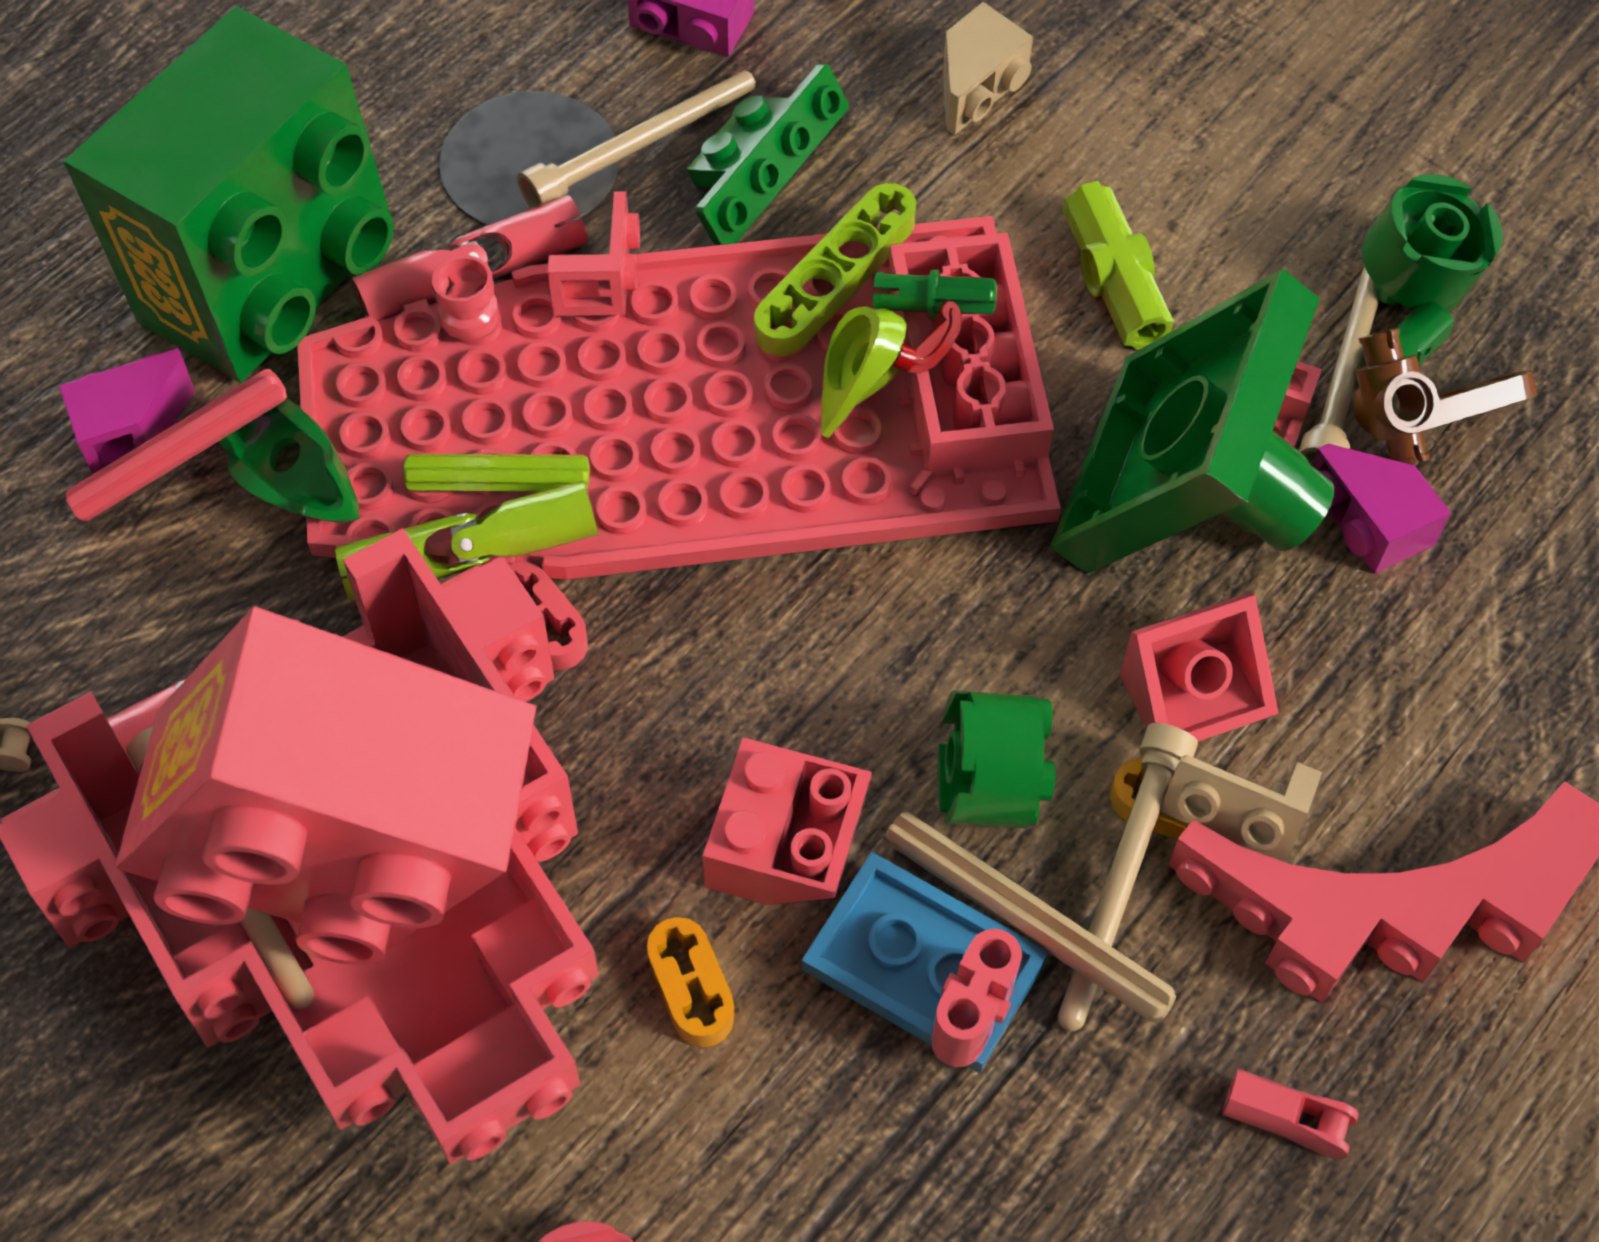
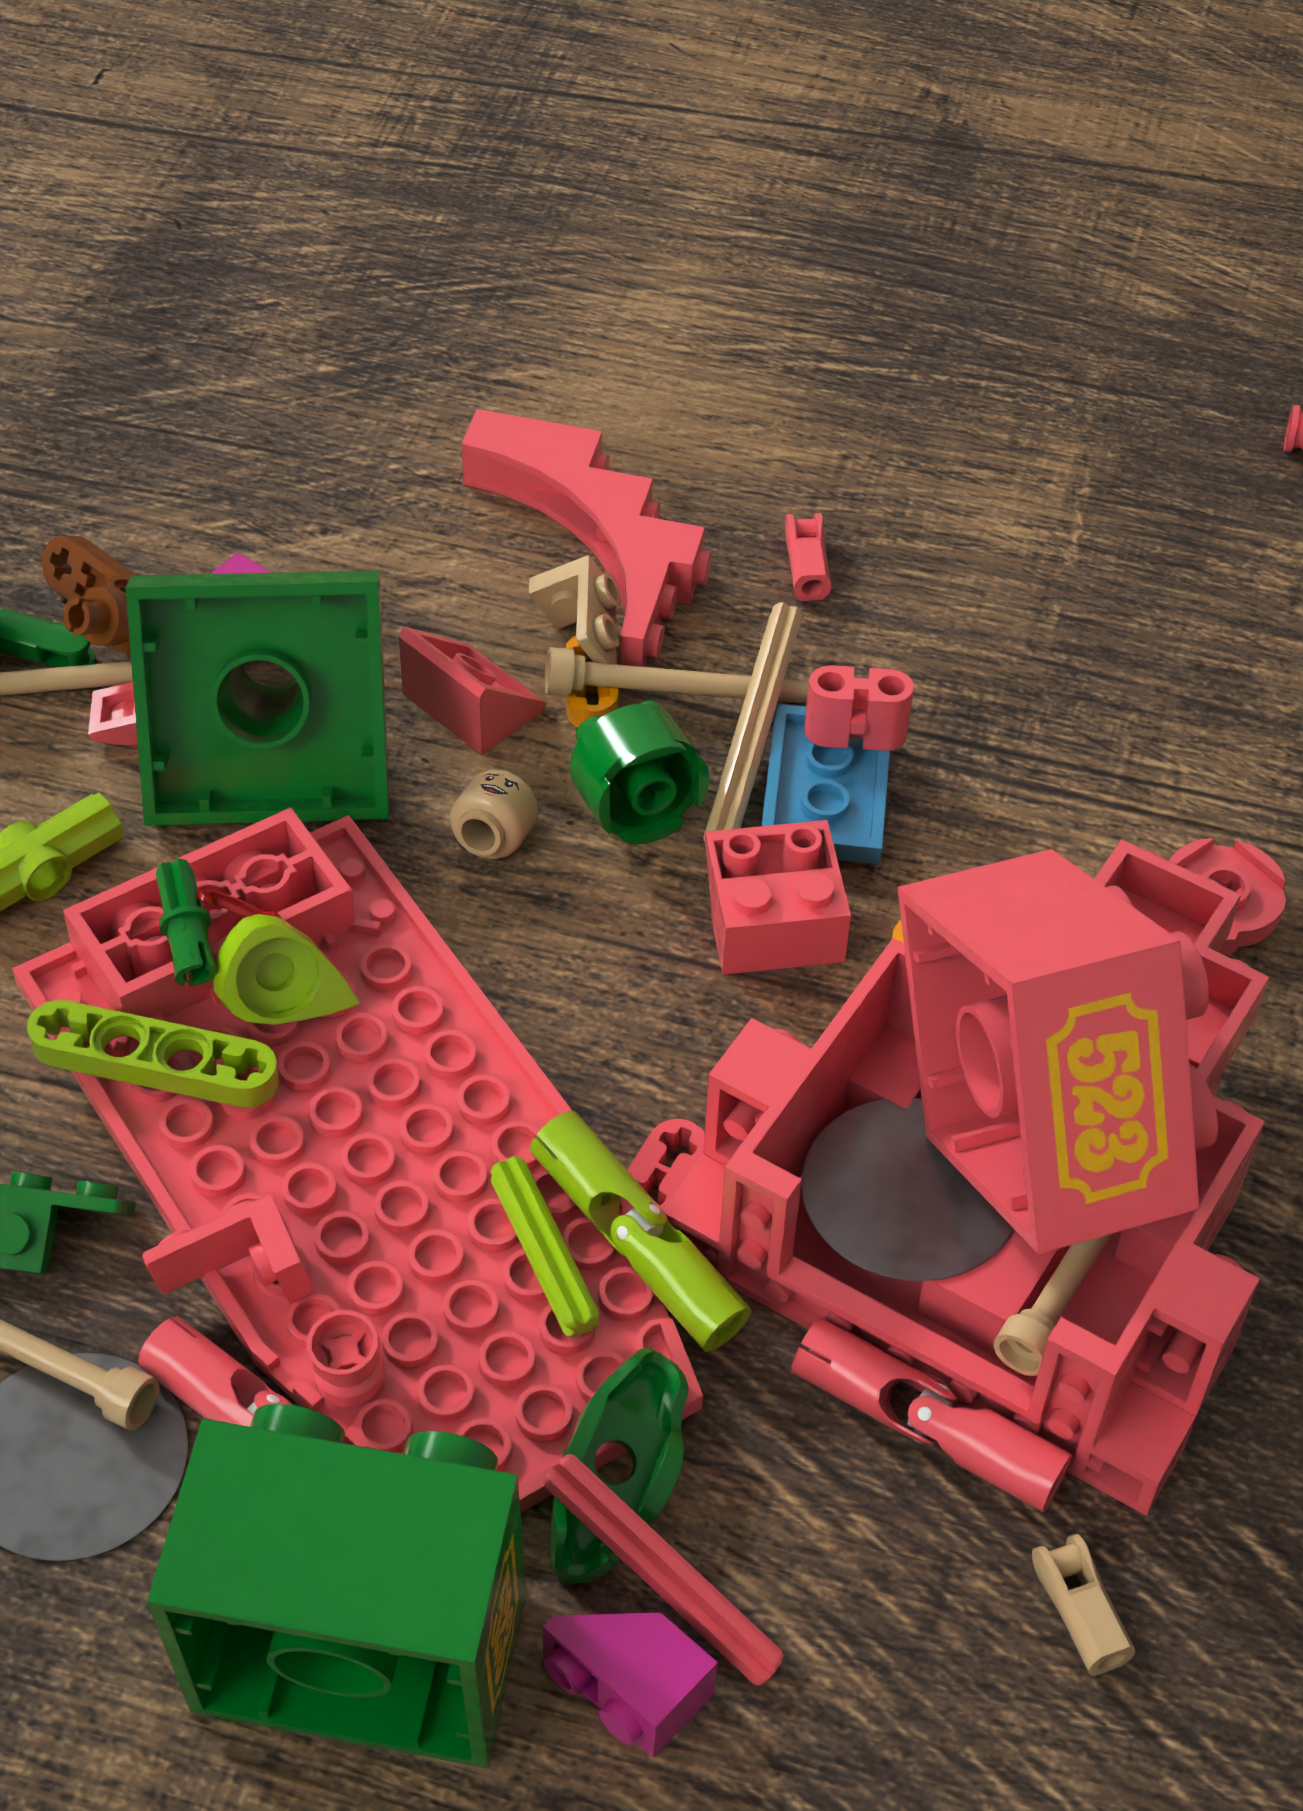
camera: 115 degrees left, 10 degrees down
(1010, 630) = (494, 814): none -> tan head

